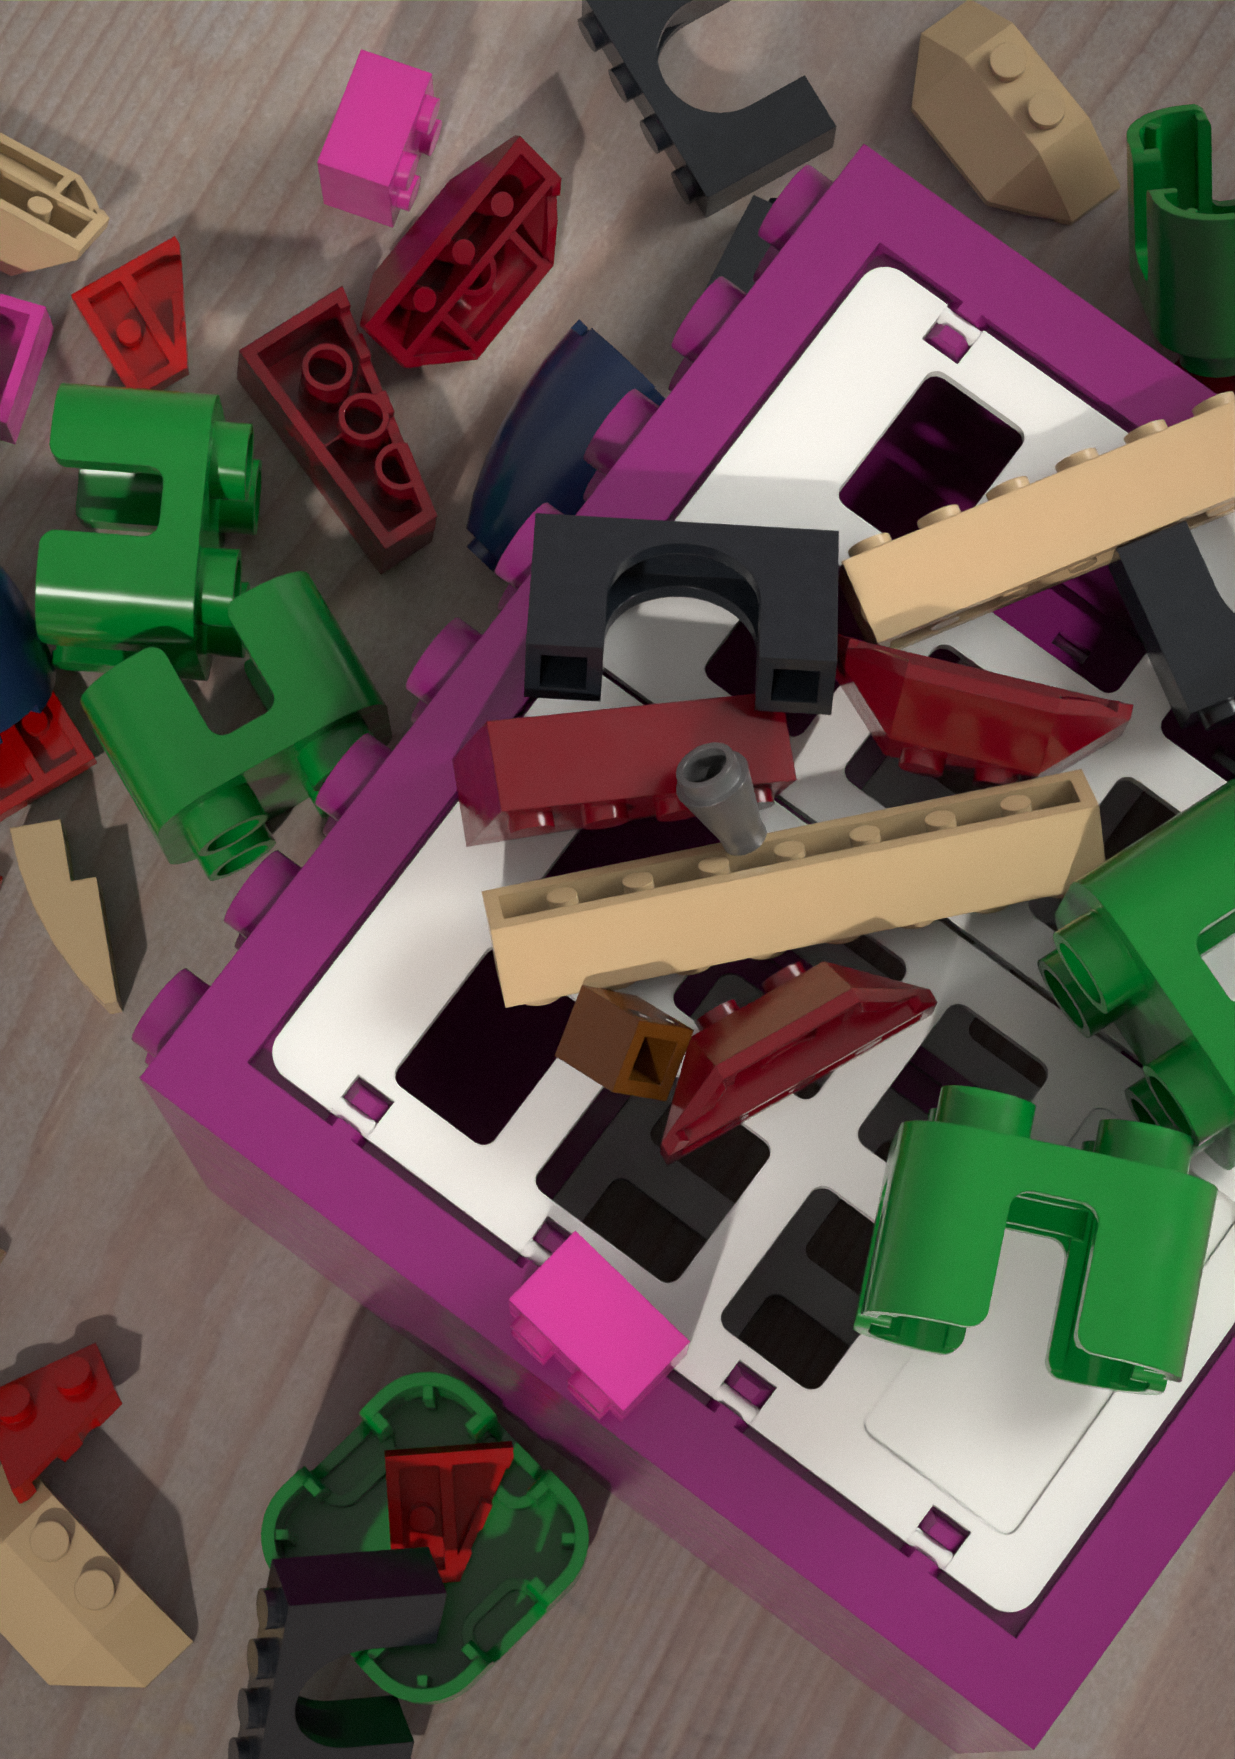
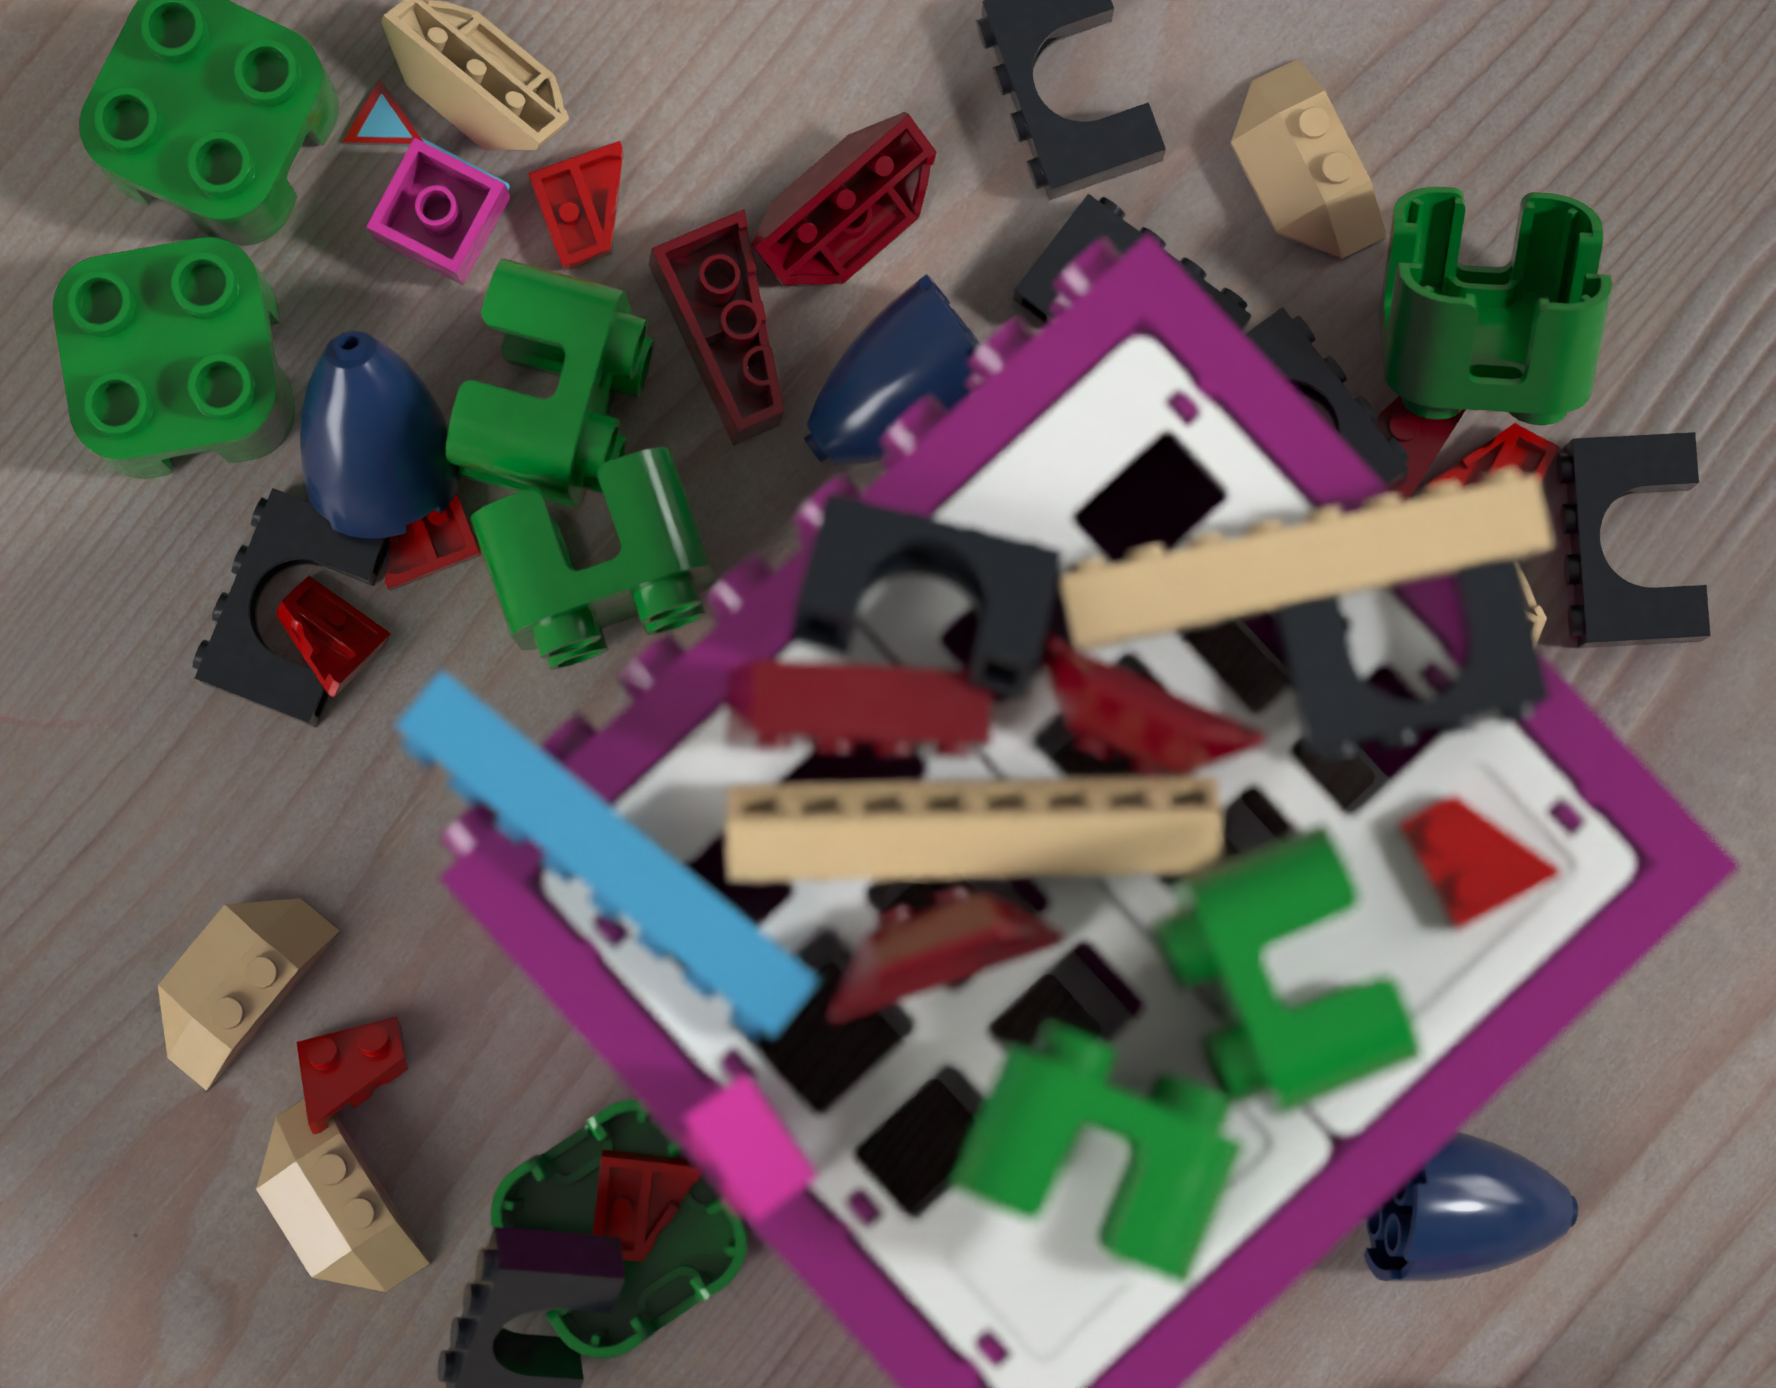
camera: 15 degrees right, 5 degrees up
(69, 908) = (427, 643): tan slope -> none
(347, 1006) = (607, 854): none -> dark azure brick
(379, 139) = (796, 93): dark pink brick -> none
(624, 1043) = (815, 927): reddish brown brick -> none
(721, 795) = (926, 749): flat silver cone -> none

